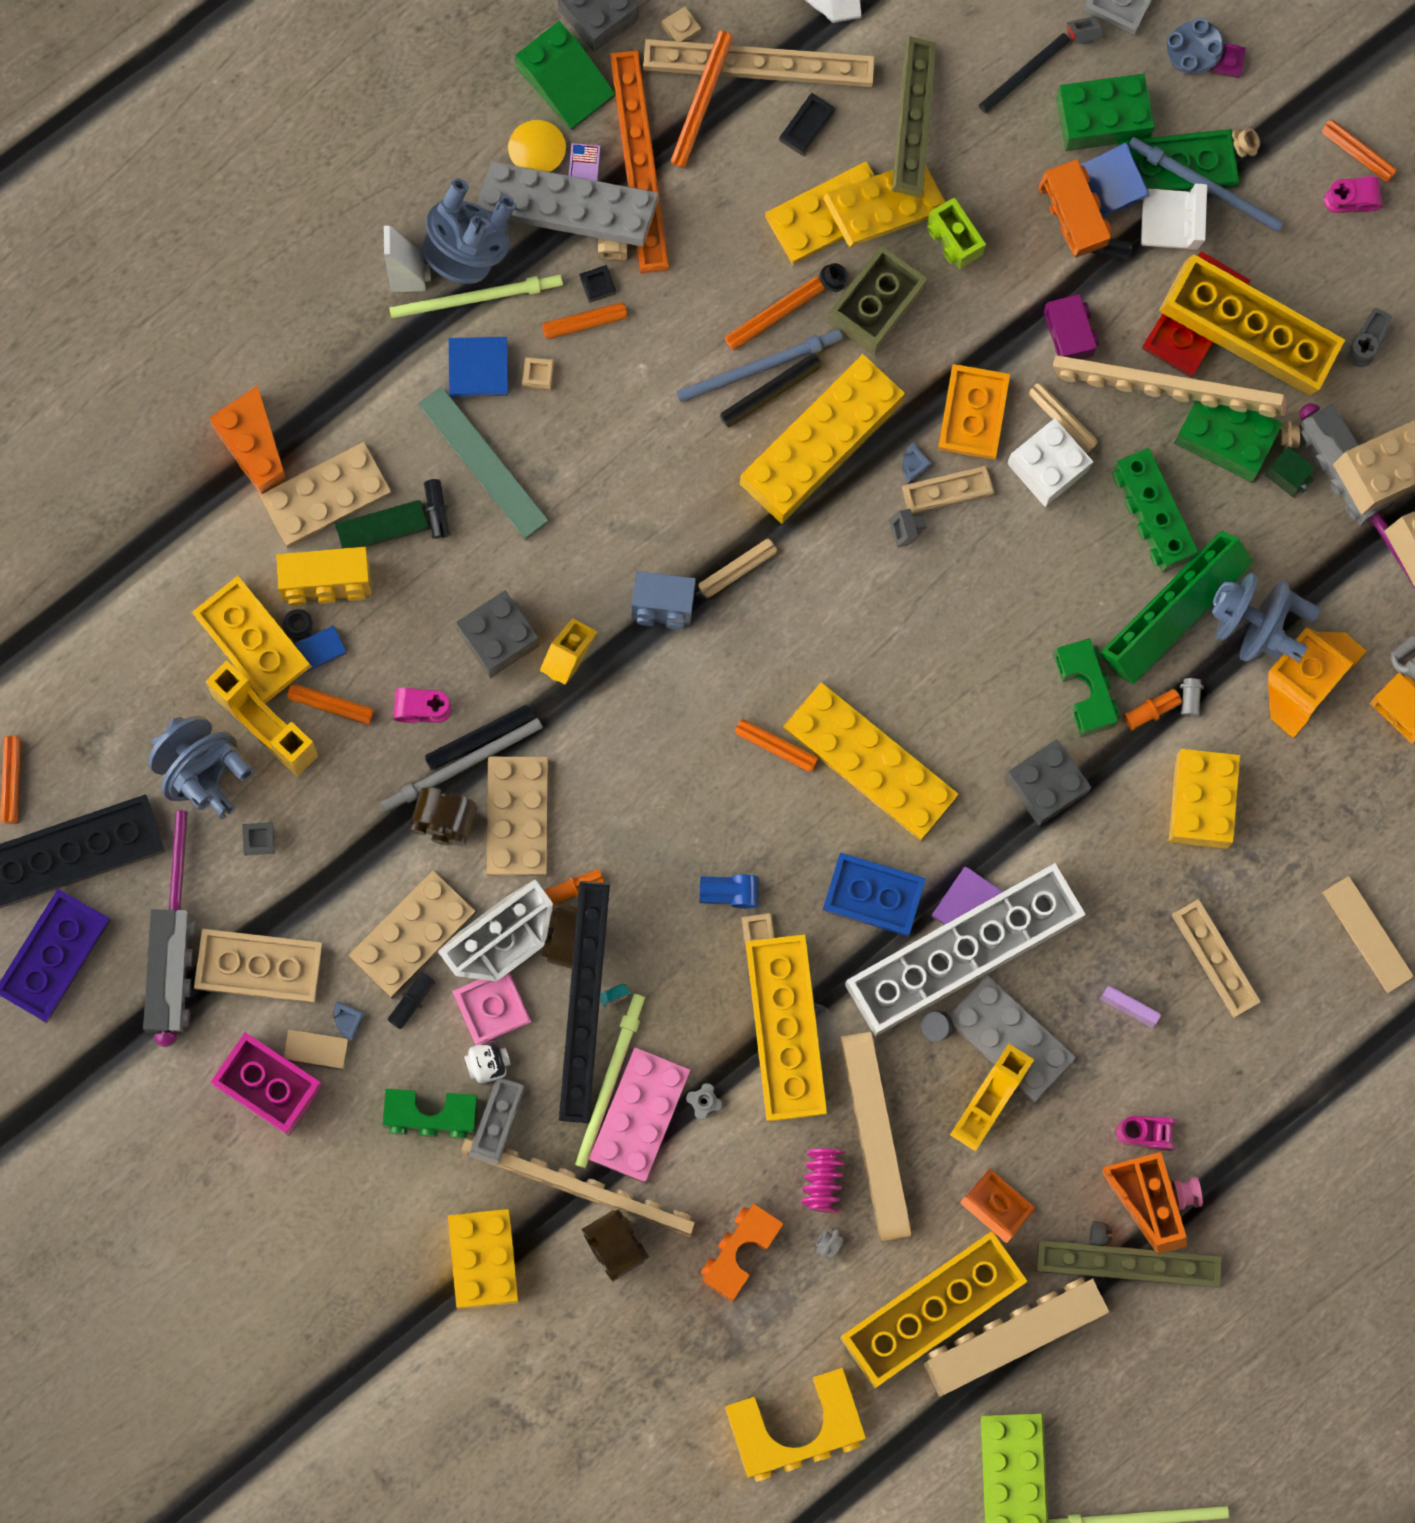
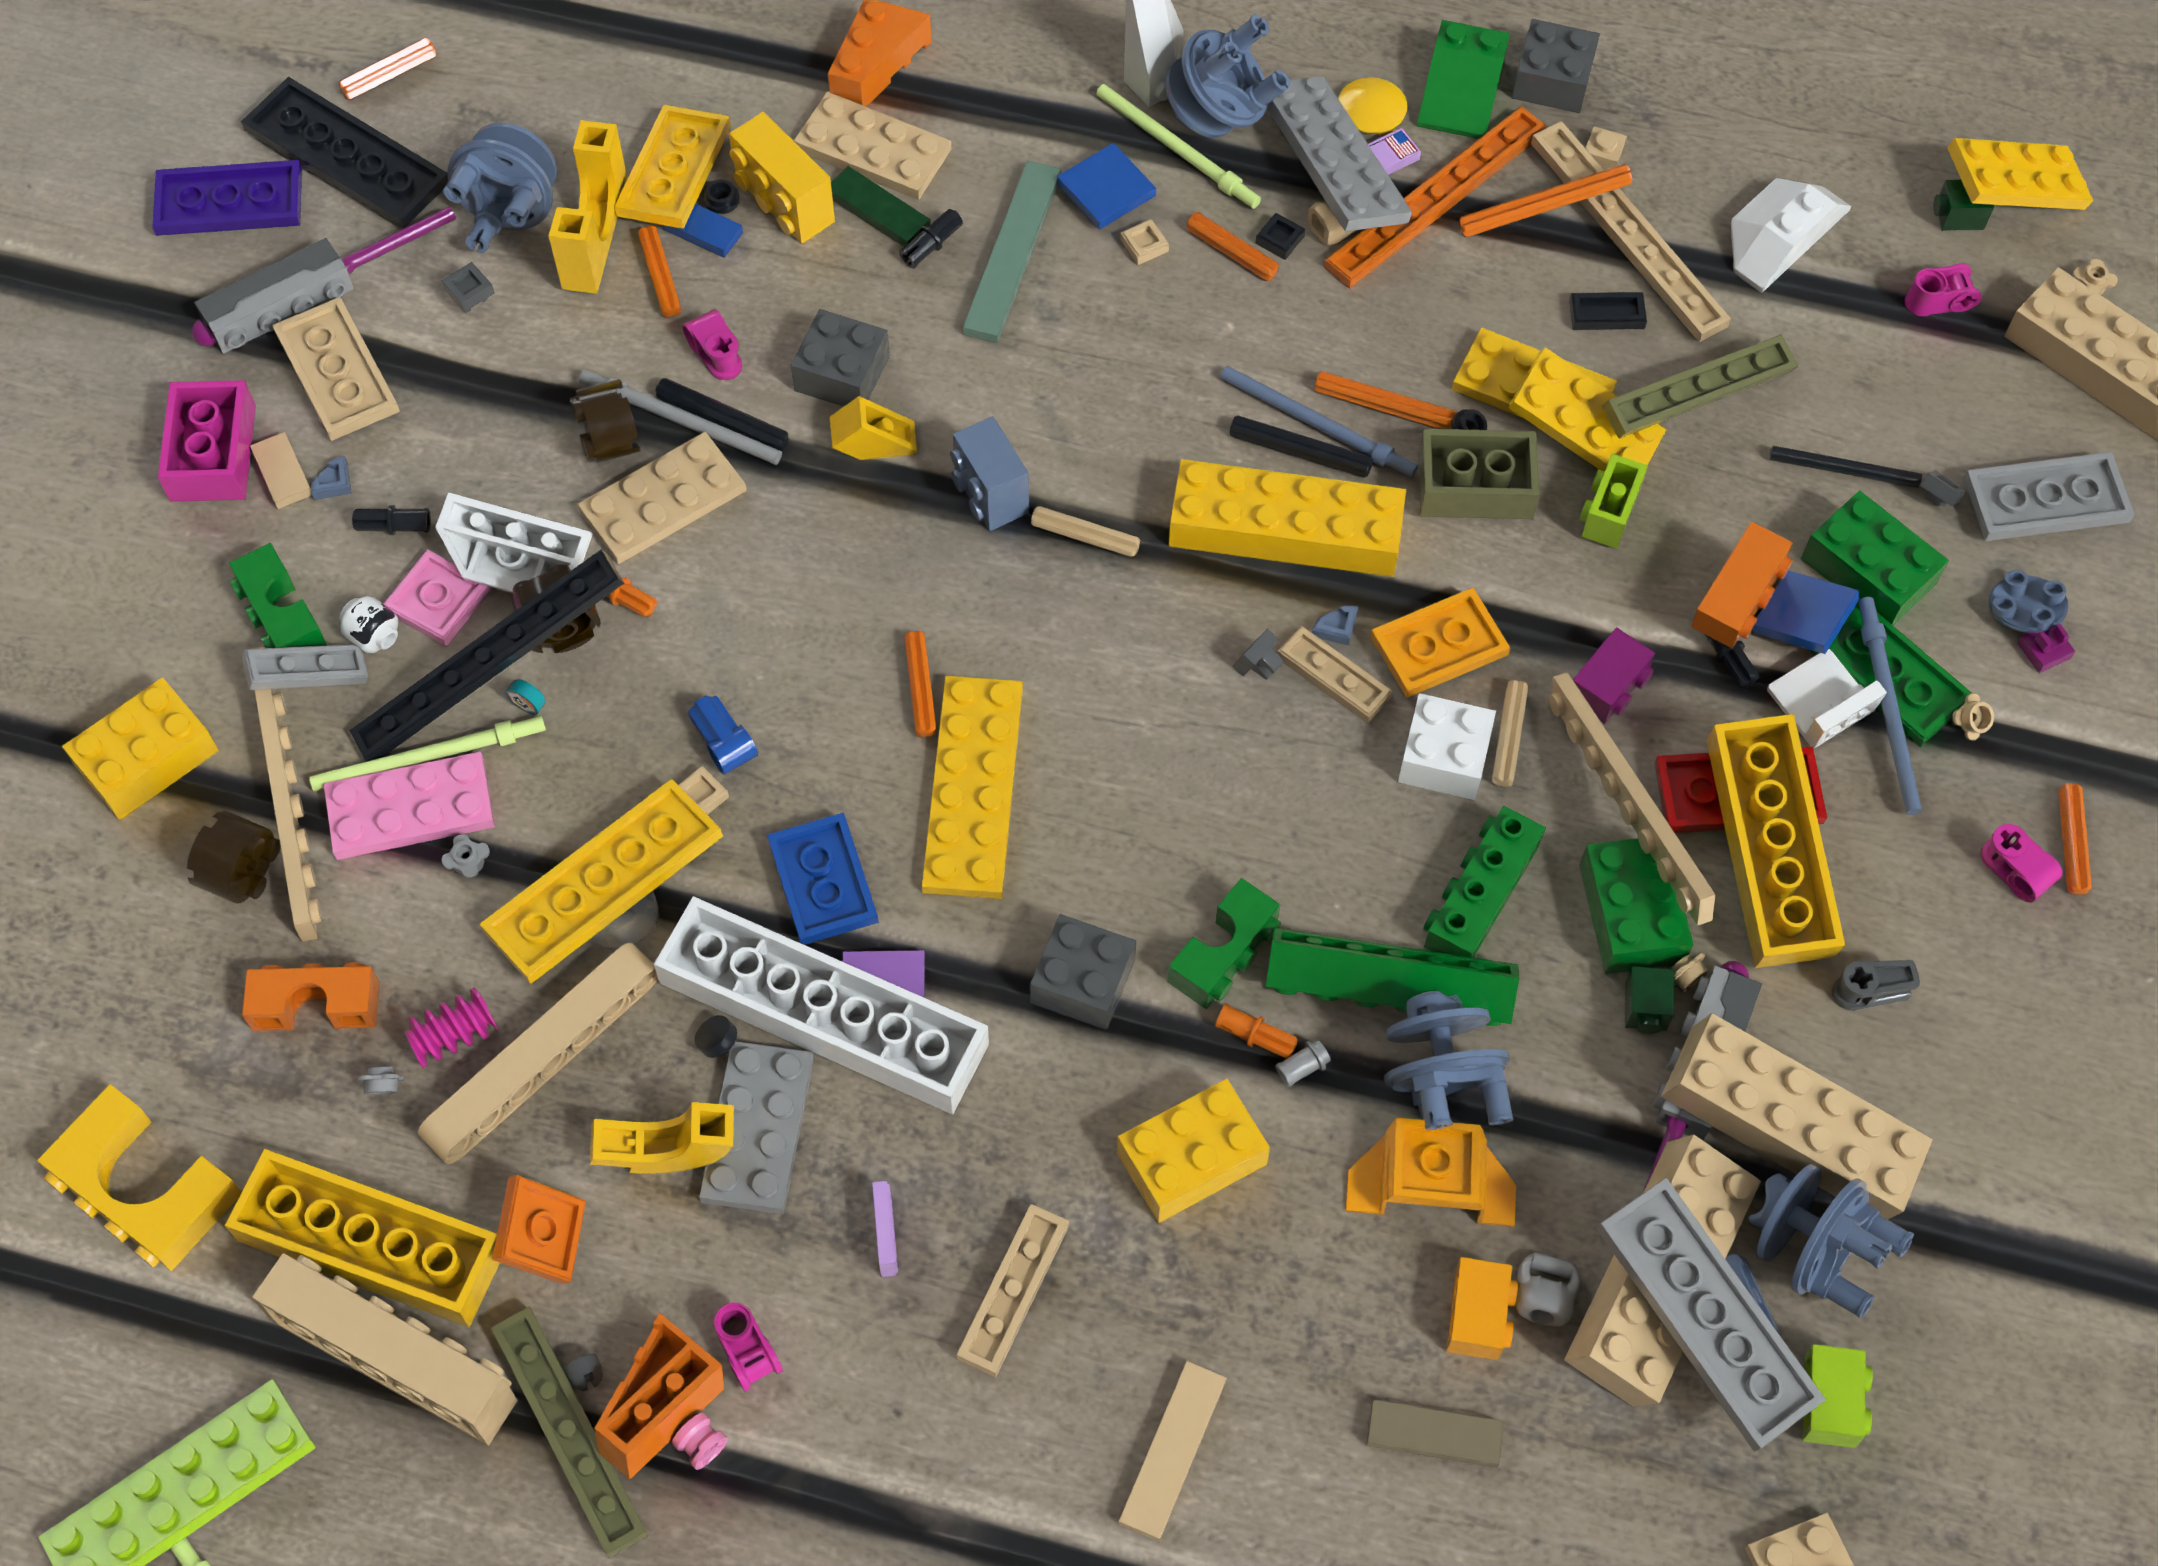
camera: 60 degrees right, 15 degrees down
(412, 934) = (430, 469): tan plate -> none

